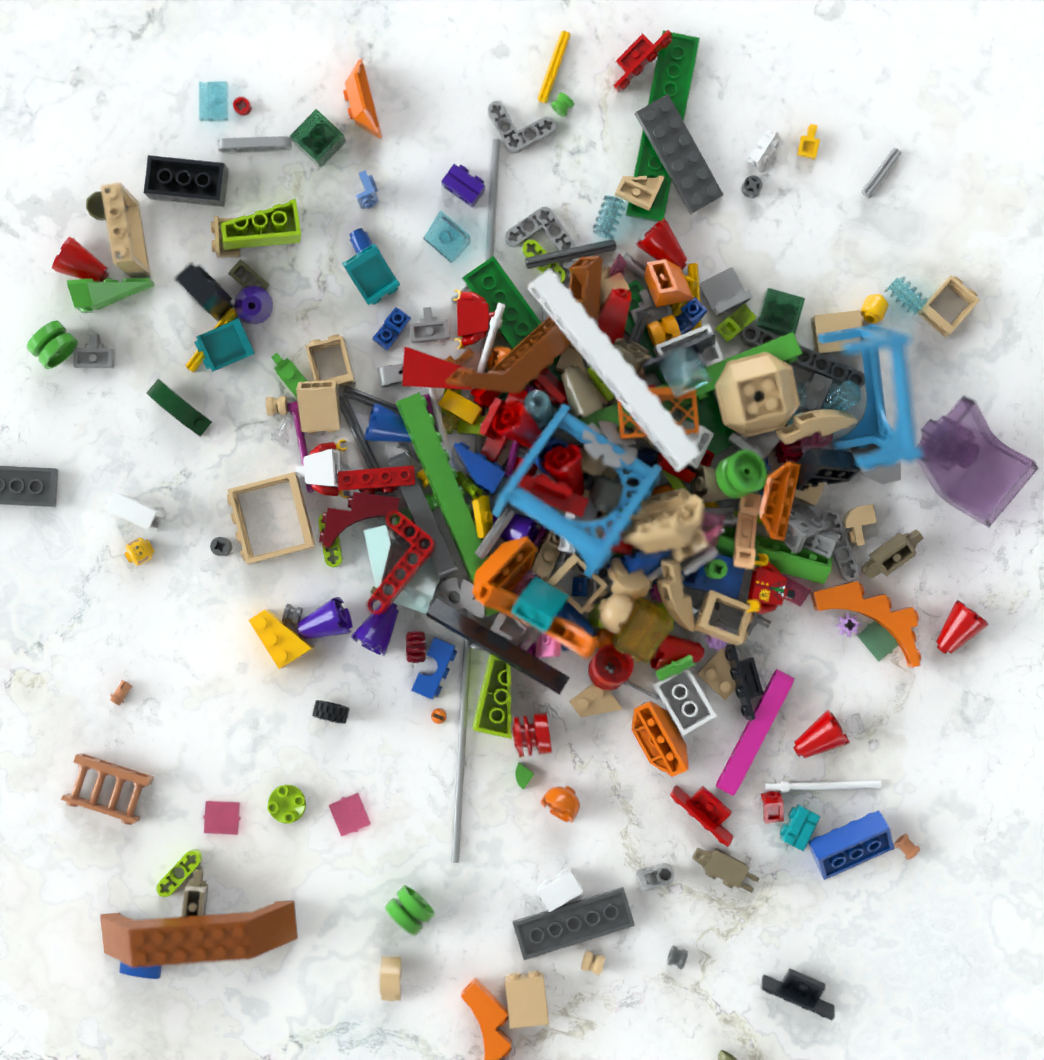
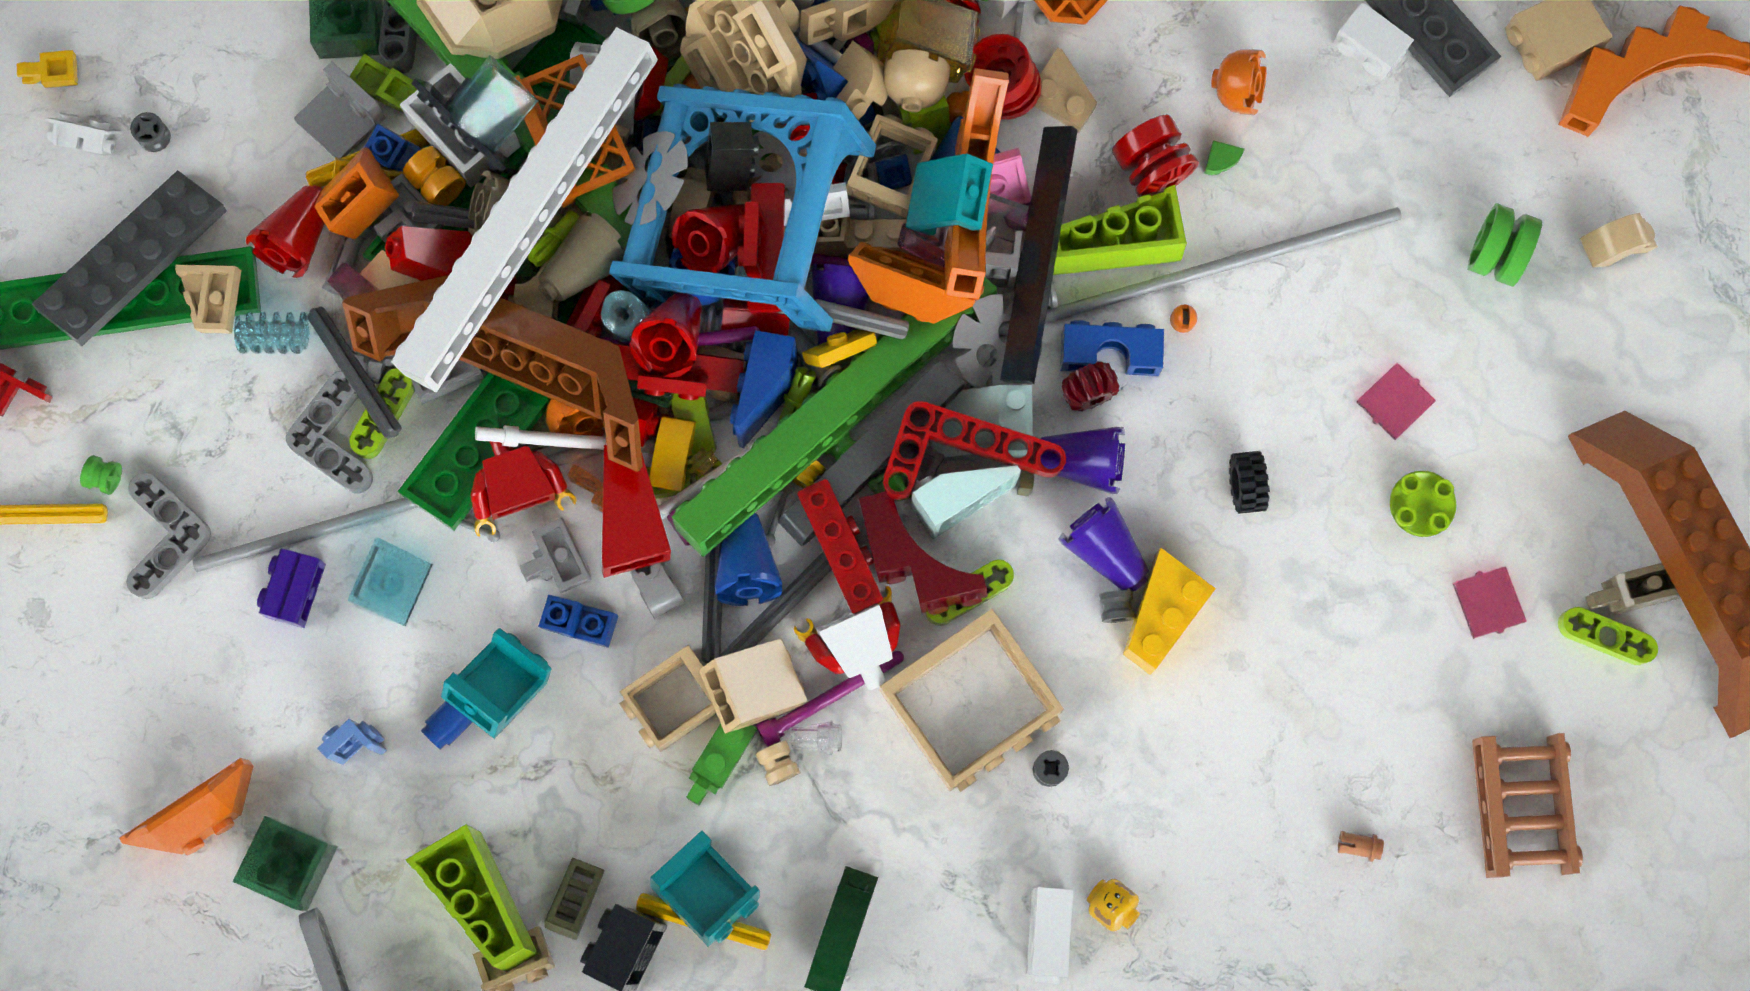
camera: 115 degrees left, 10 degrees down
(262, 301) = (617, 869): dark purple cone -> none

